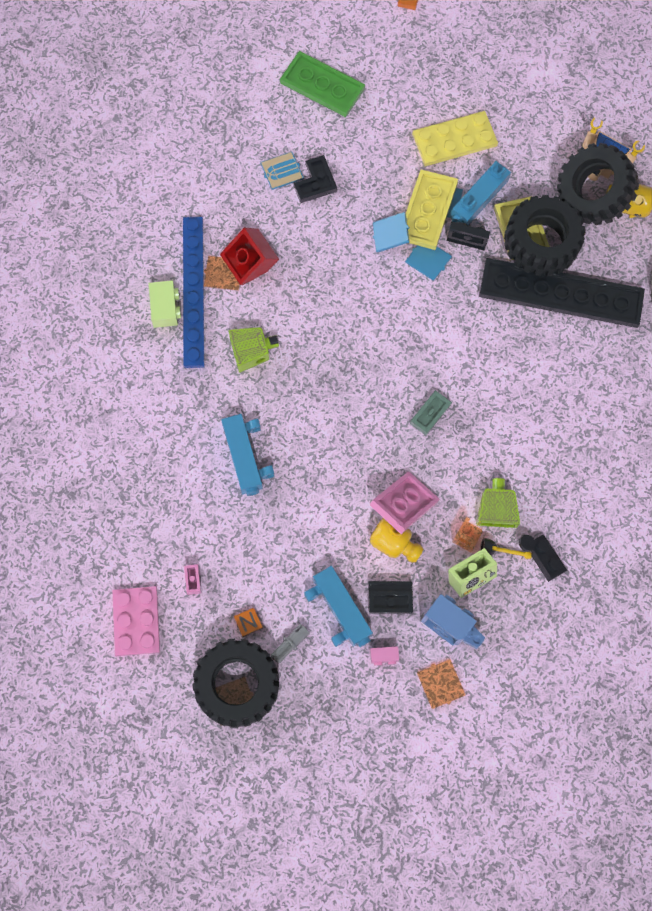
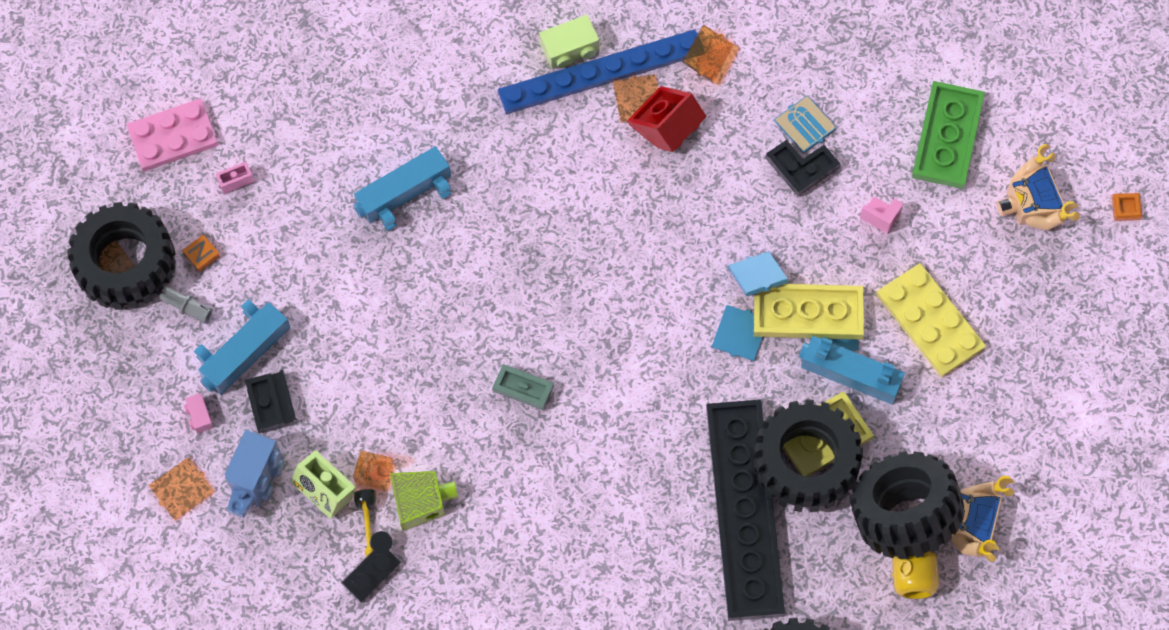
camera: 80 degrees right, 5 degrees down
(207, 213) = (710, 55): none -> clear orange piece
(251, 347) = (543, 154): lime torso -> none
(369, 142) = (881, 214): none -> bright pink panel
(387, 46) = (1035, 195): none -> torso
(393, 544) = (341, 384): yellow piece -> none
(404, 502) = (390, 380): bright pink plate -> none
(468, 236) = (784, 376): black plate -> none

